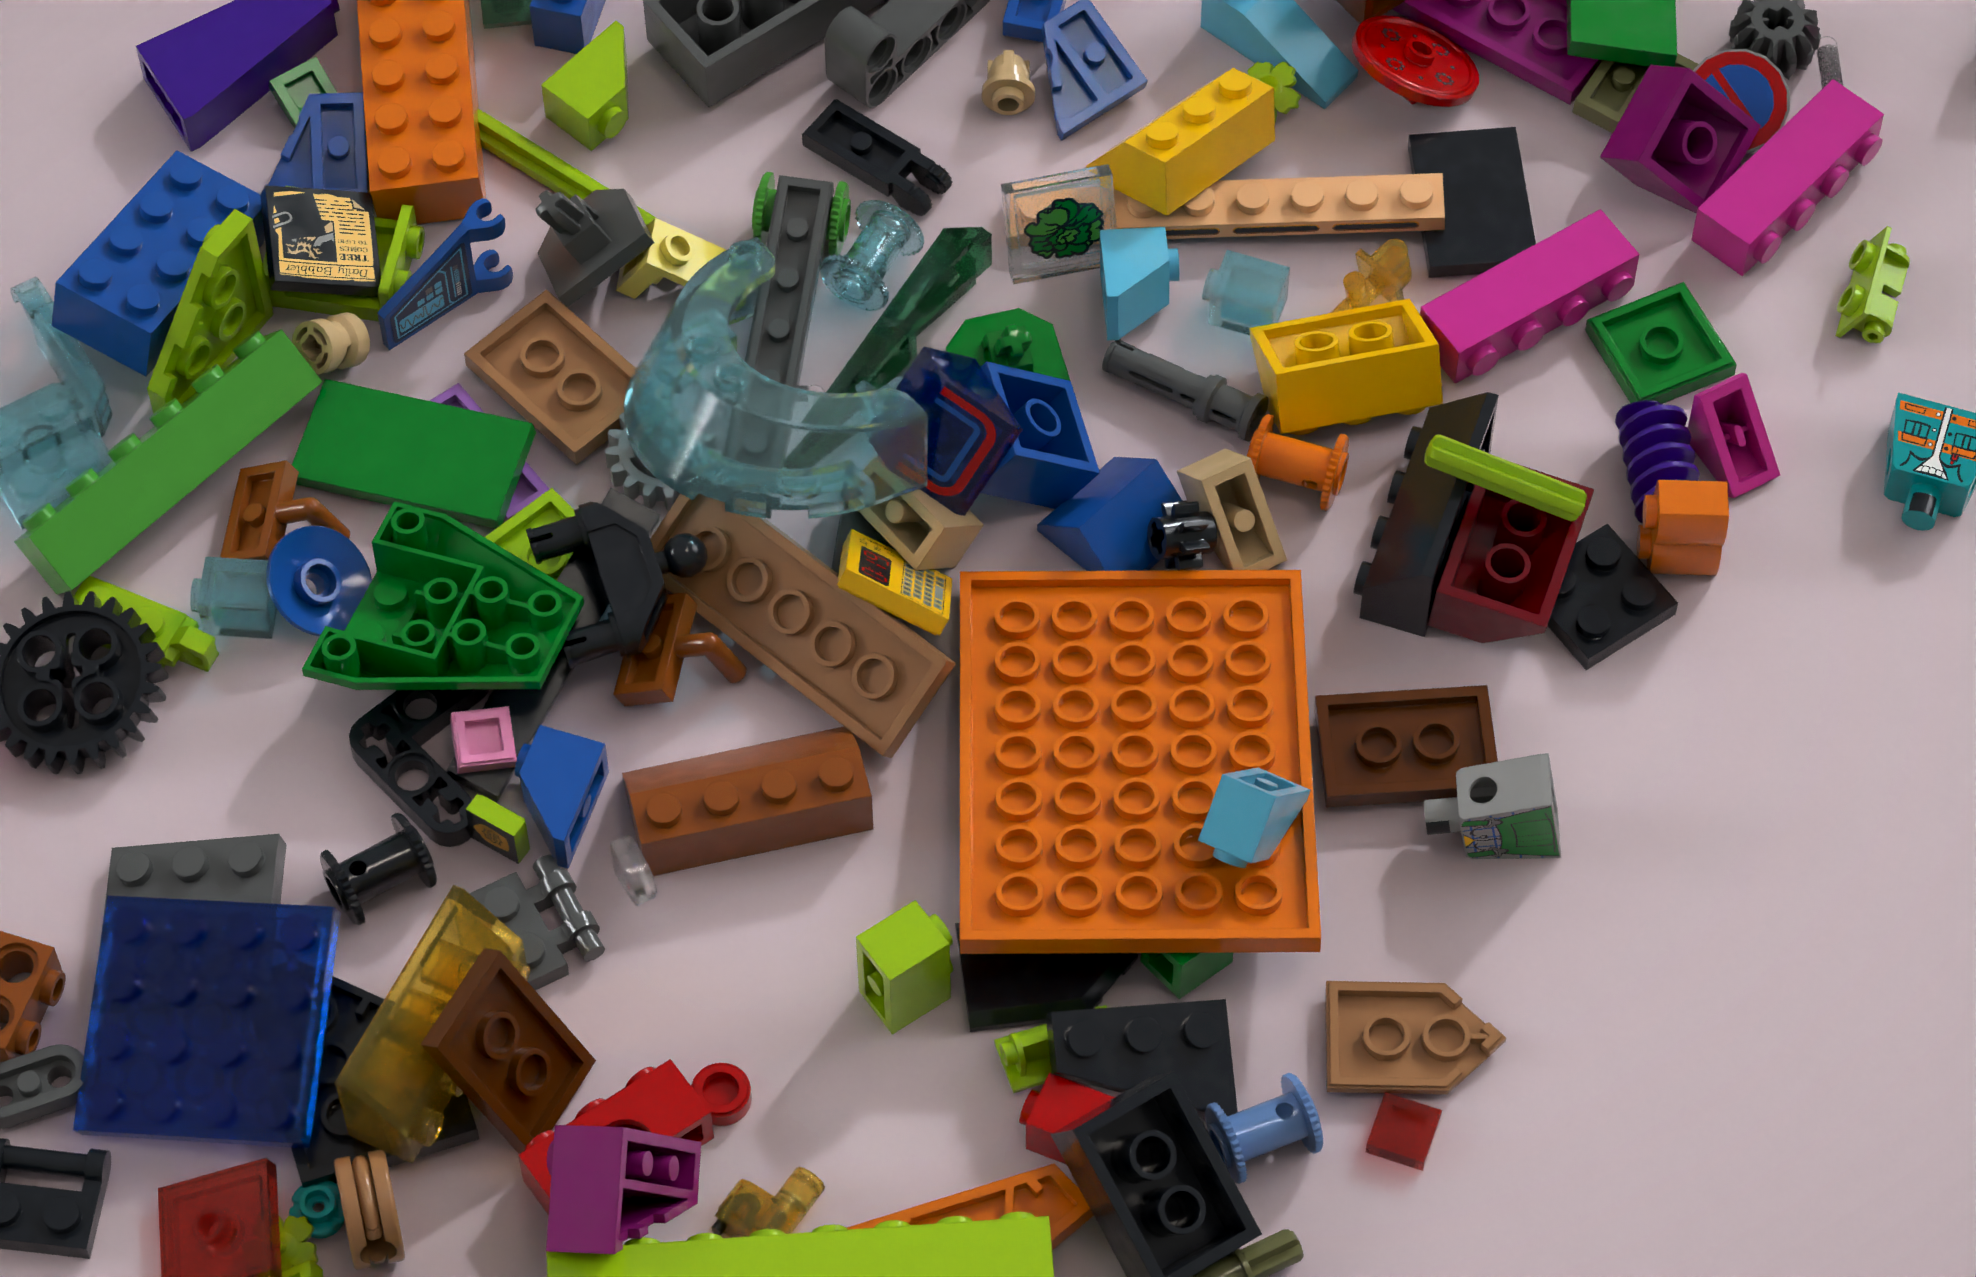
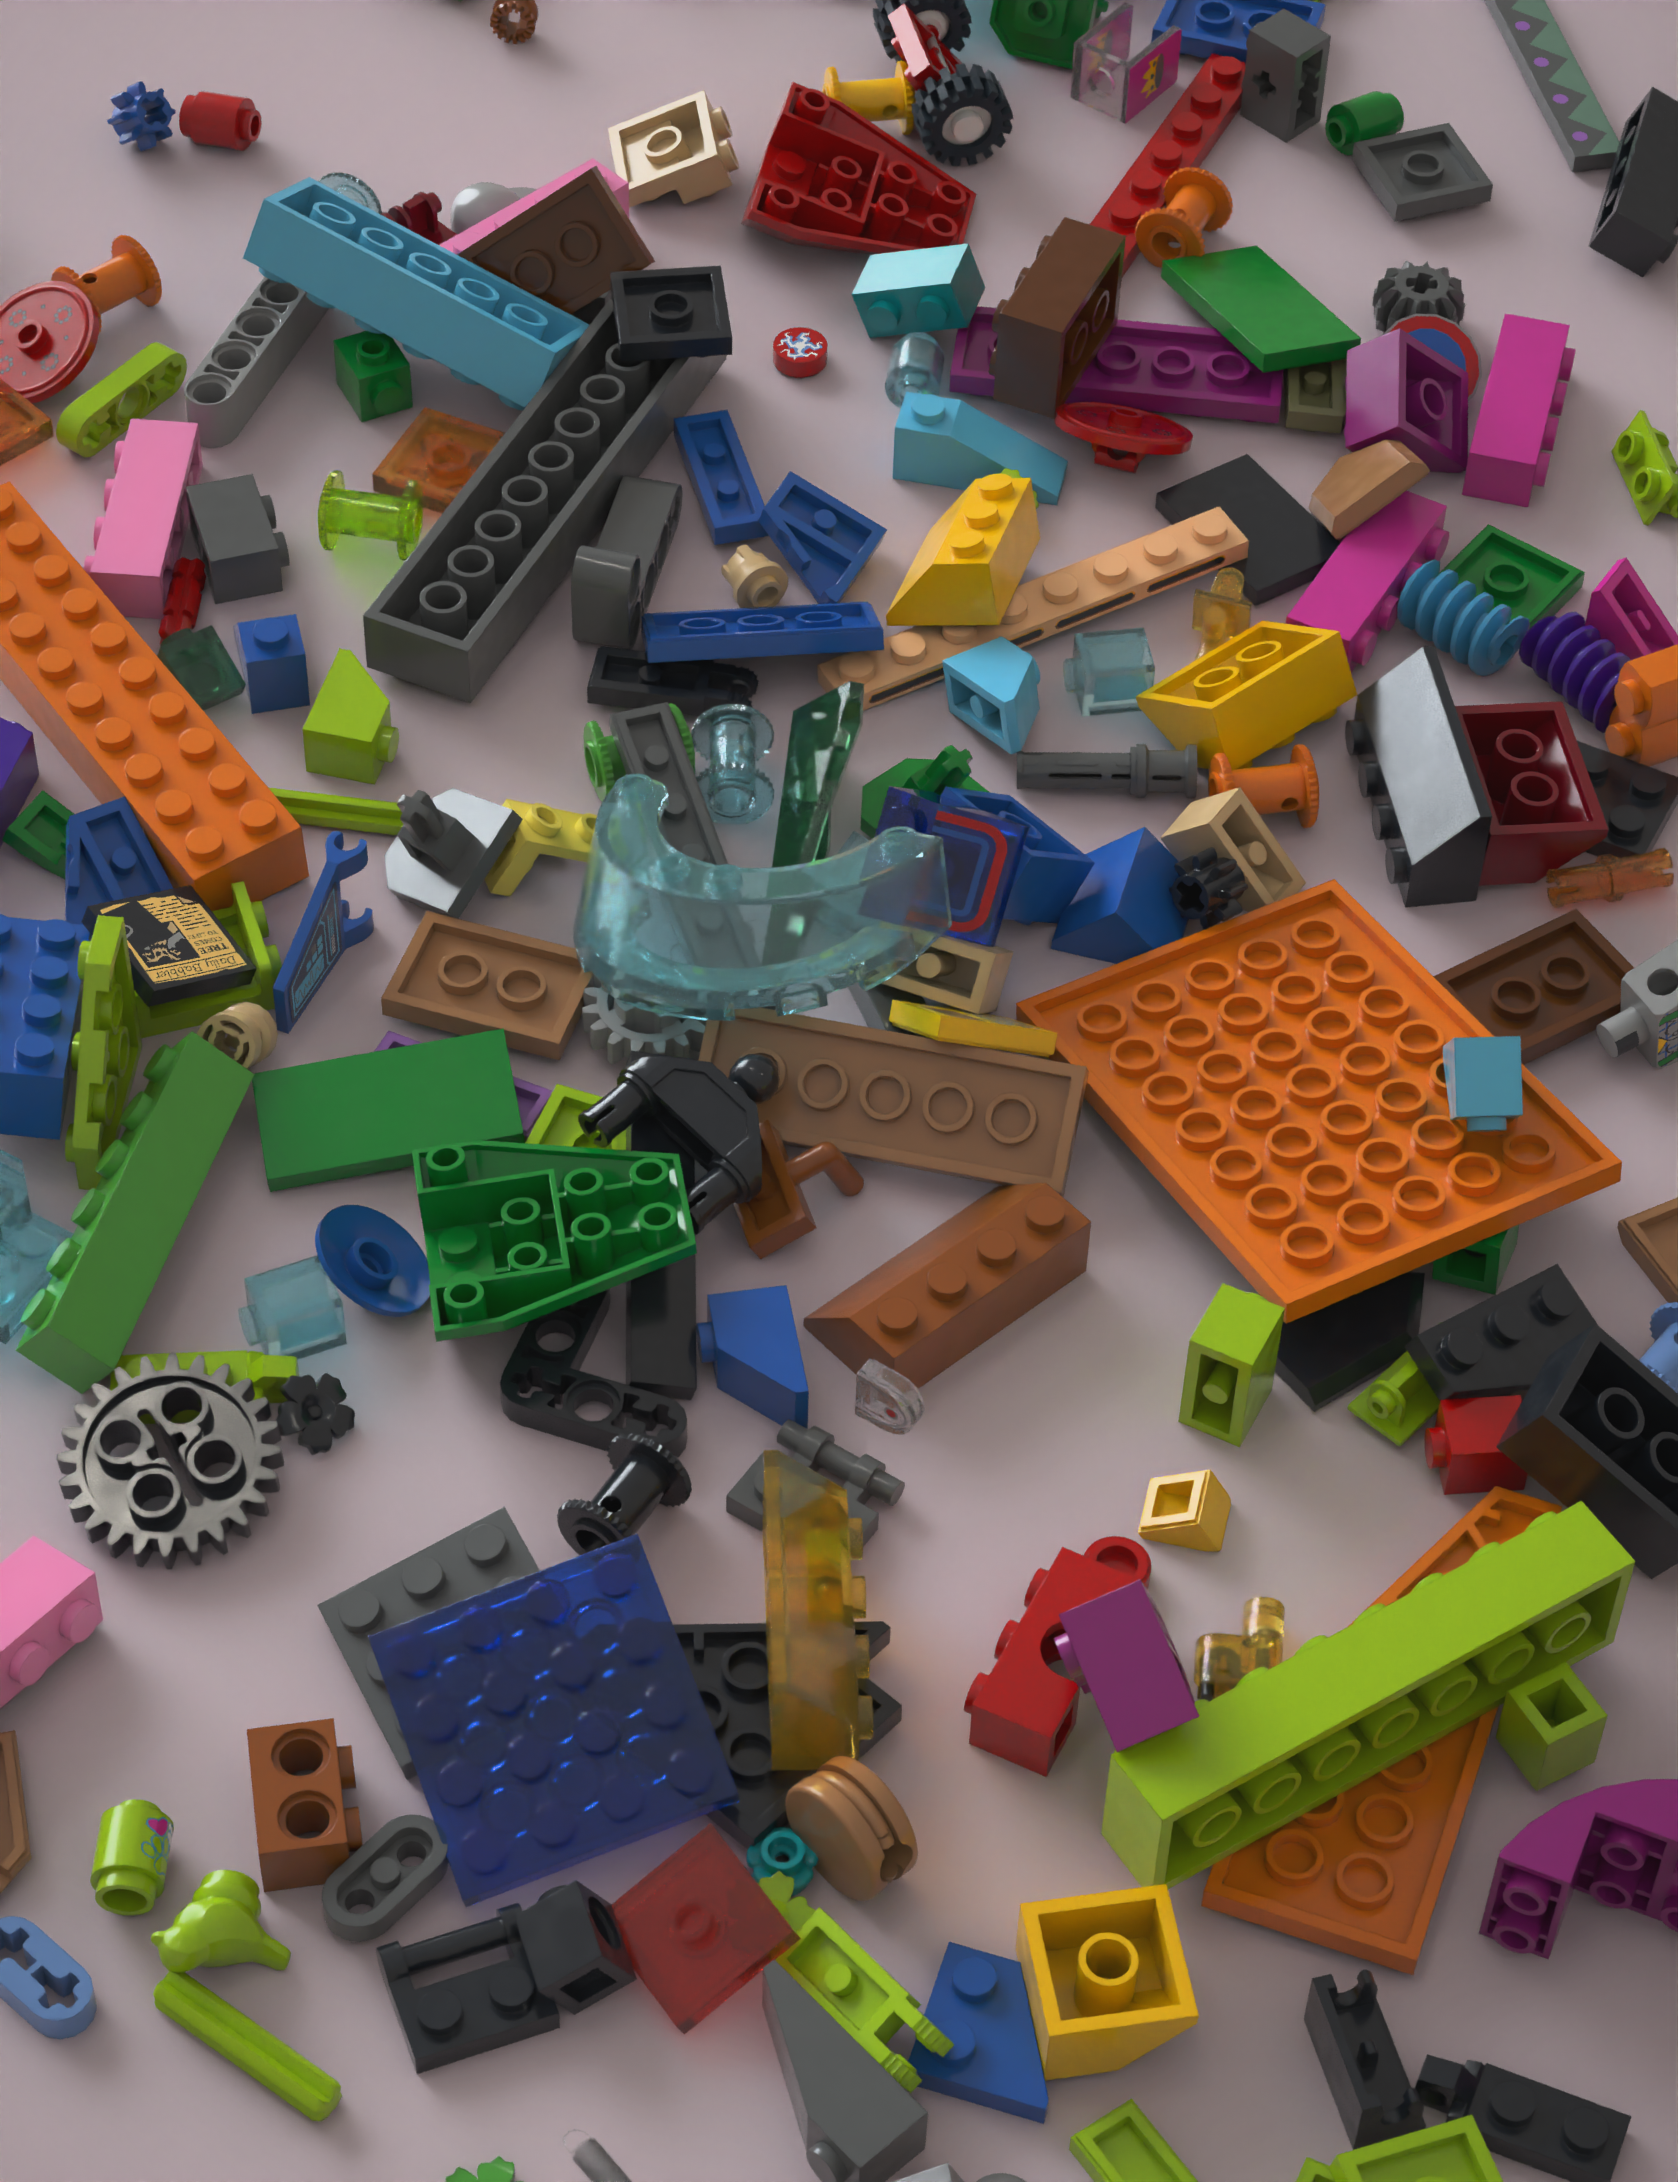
camera: 30 degrees left, 10 degrees down
(121, 1204) = (574, 1947): none -> black brick
(205, 687) = (314, 1411): none -> black plant
(264, 508) = (267, 1220): dark orange plate -> none
(483, 739) = (653, 1335): bright pink tile -> none
(498, 828) = (720, 1415): tile -> none
(508, 1050) = (901, 1604): reddish brown plate -> none
(809, 1070) = (1186, 1511): none -> yellow slope
(968, 136) = (761, 632): none -> blue tile
(1057, 222) = (901, 666): clear tile -> none
(1505, 477) = (1493, 708): lime axle -> none
(1543, 667) = (1609, 877): none -> clear orange pin
(1580, 204) = (1364, 484): none -> medium nougat tile
(1582, 366) = (1459, 620): none -> dark azure piece
(1829, 63) = (1482, 321): clear piece -> none

